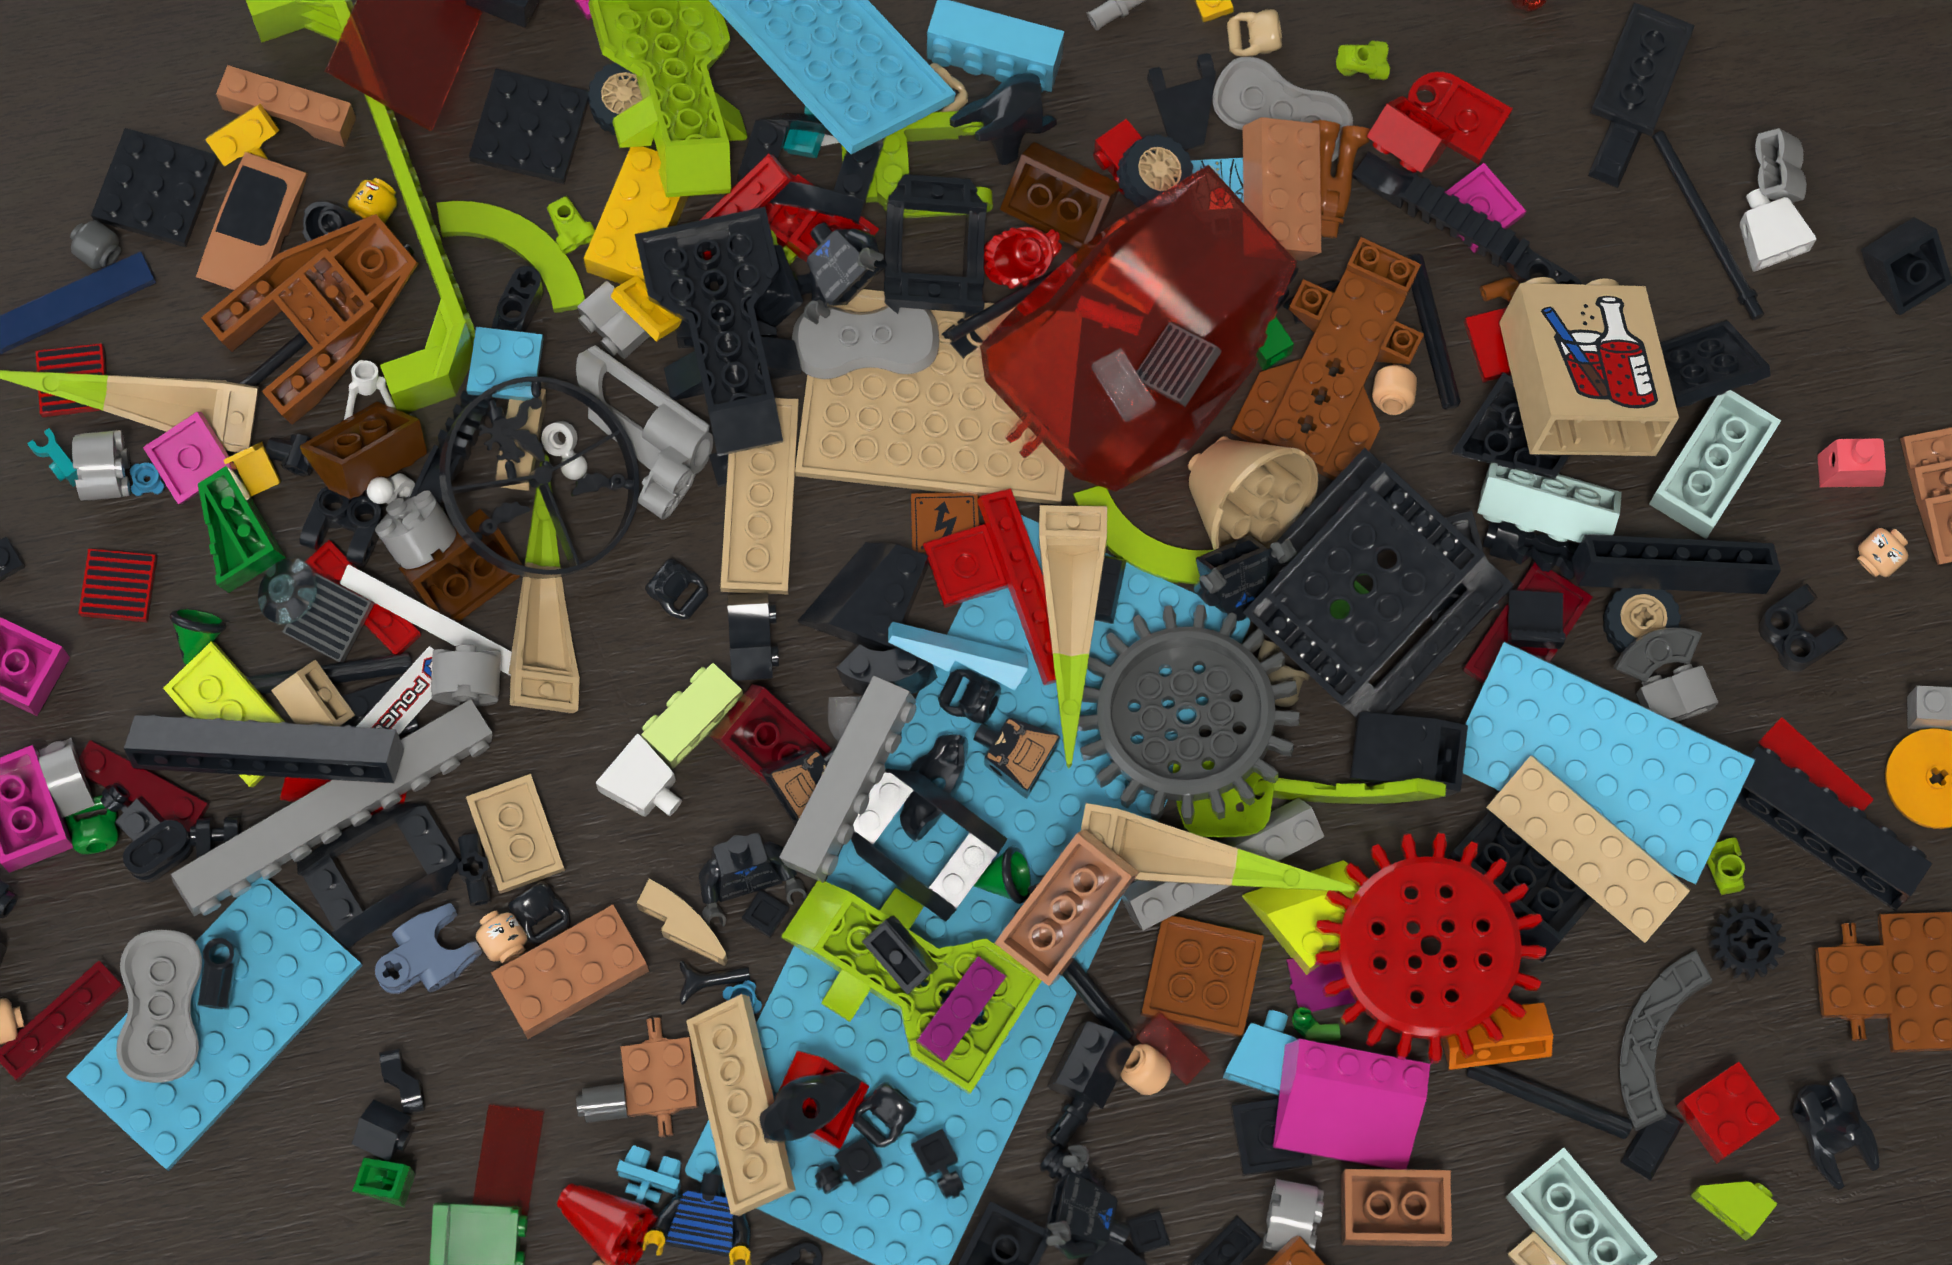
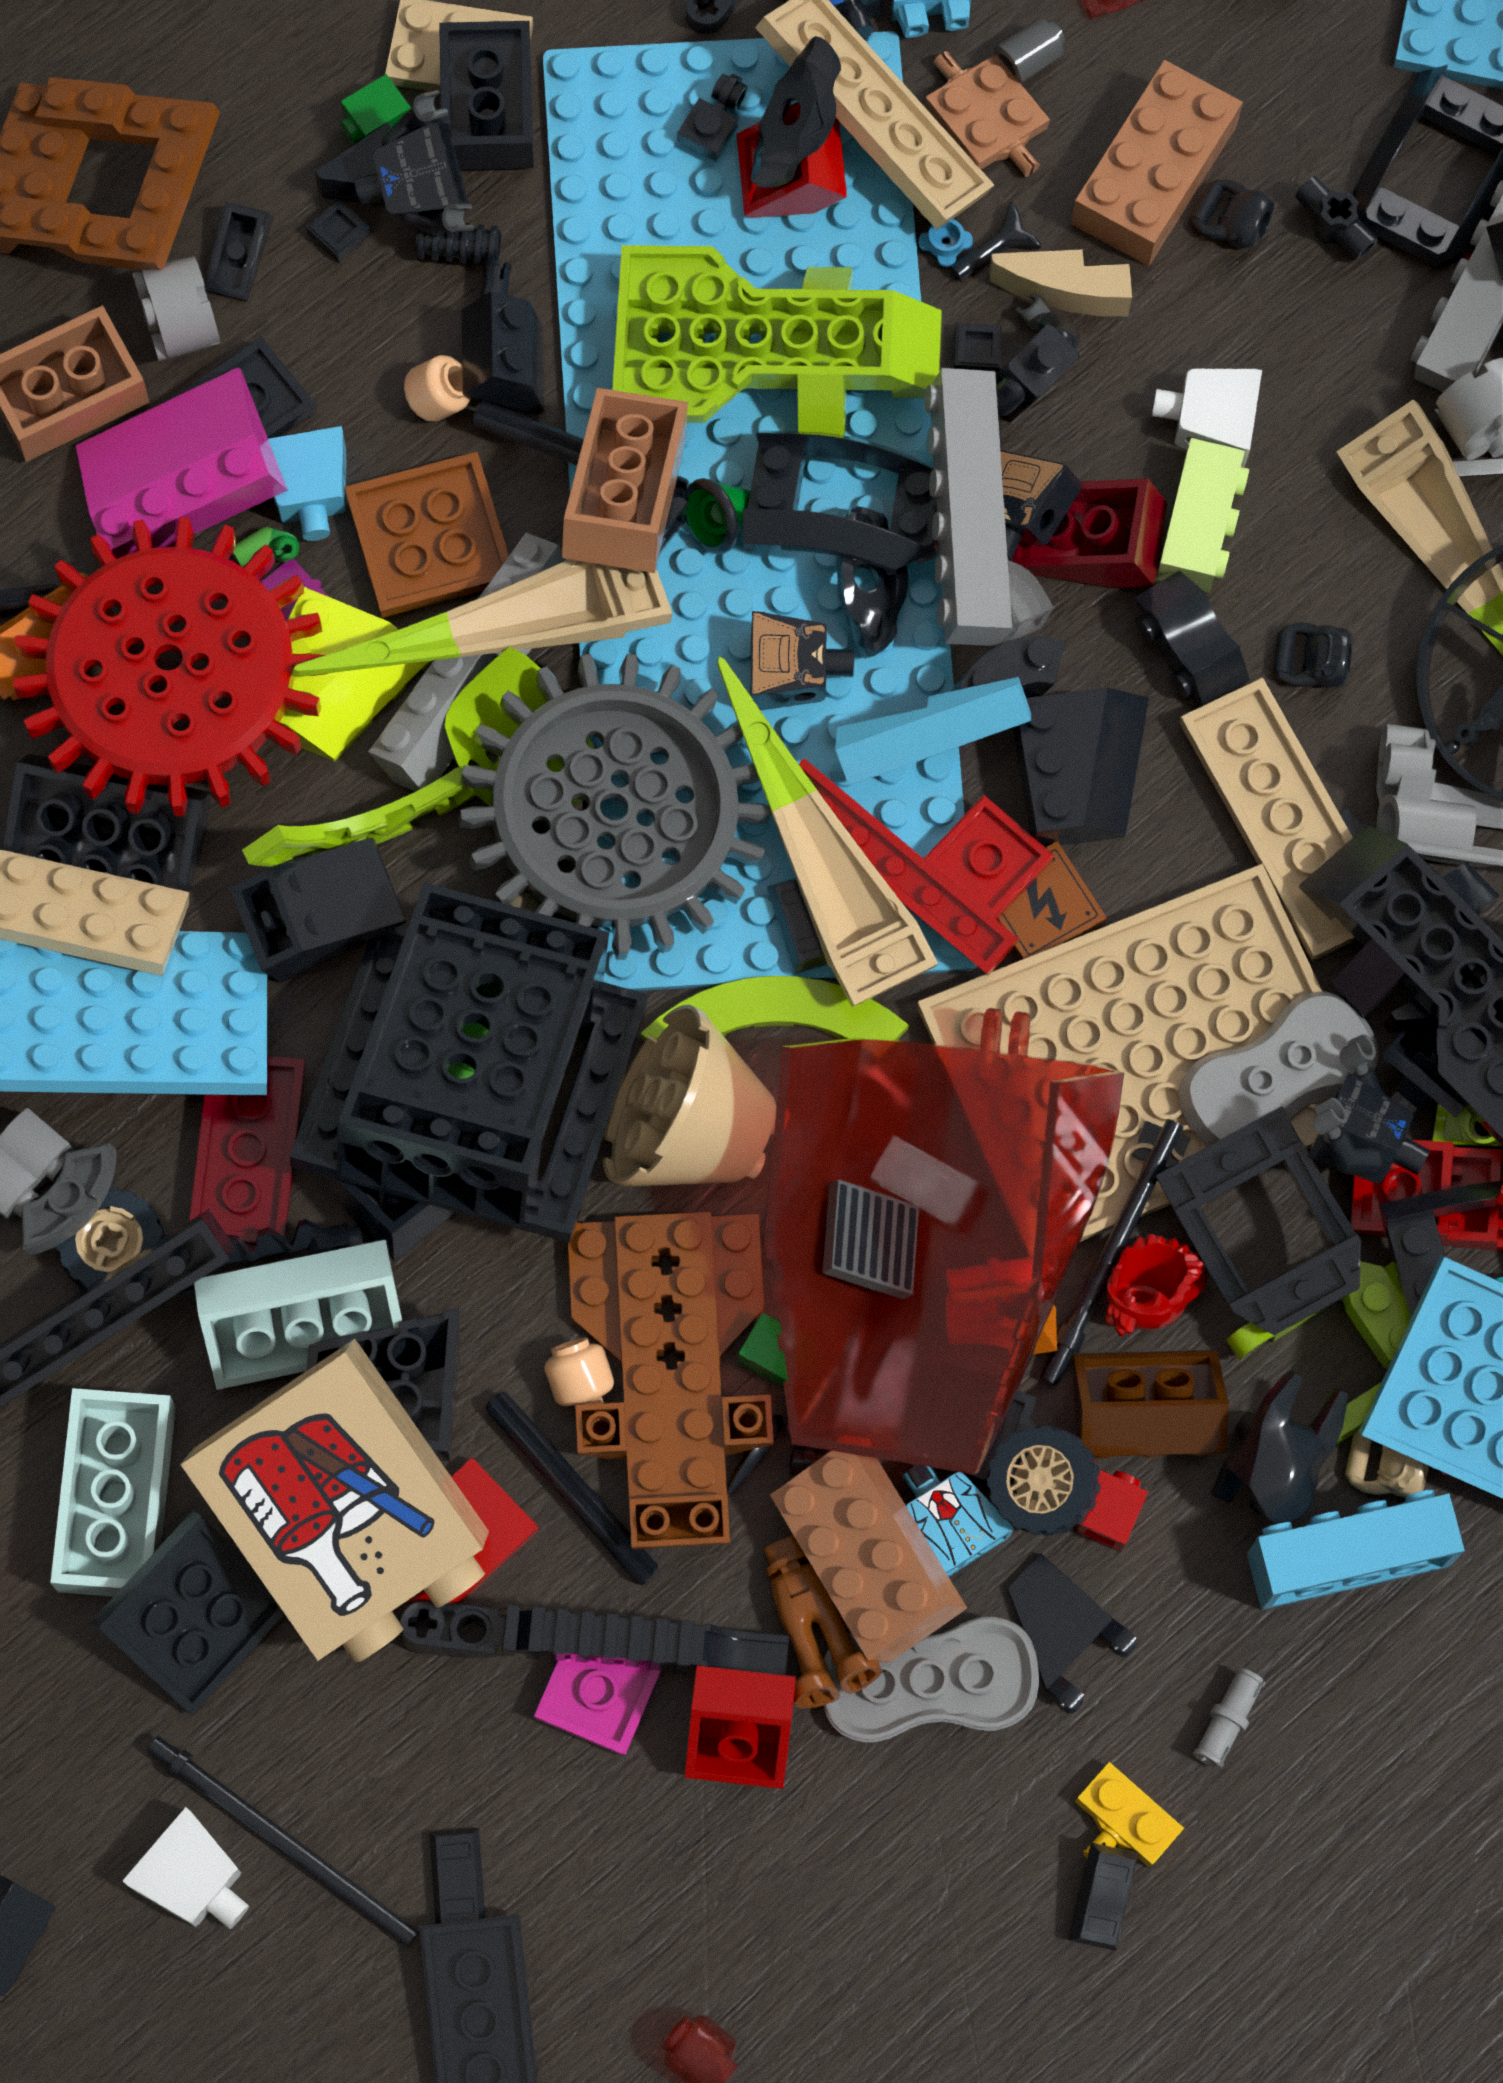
camera: 150 degrees right, 0 degrees up
(421, 956) = (1332, 99): sand blue piece -> none
(501, 937) = (1258, 160): light nougat head -> none
(515, 833) = (1317, 282): tan plate -> none
(889, 1107) = (703, 199): black piece -> none
(900, 954) = (789, 339): black slope -> none
(935, 1156) = (622, 175): black plate -> none
(961, 1009) = (684, 319): magenta plate -> none
(978, 700) = (875, 694): black piece -> none
(1182, 1054) = (404, 432): clear red plate -> none
(1238, 573) = (645, 990): black torso -> none
(1263, 33) = (1016, 1786): tan piece -> none
(1364, 59) = (852, 1823): lime plate -> none
(1465, 109) = (694, 1820): red tile -> none
(1502, 288) = (499, 1597): dark orange arm -> none
(1535, 619) = (243, 1156): black piece -> none
(1780, 166) = (221, 1969): light grey brick -> none

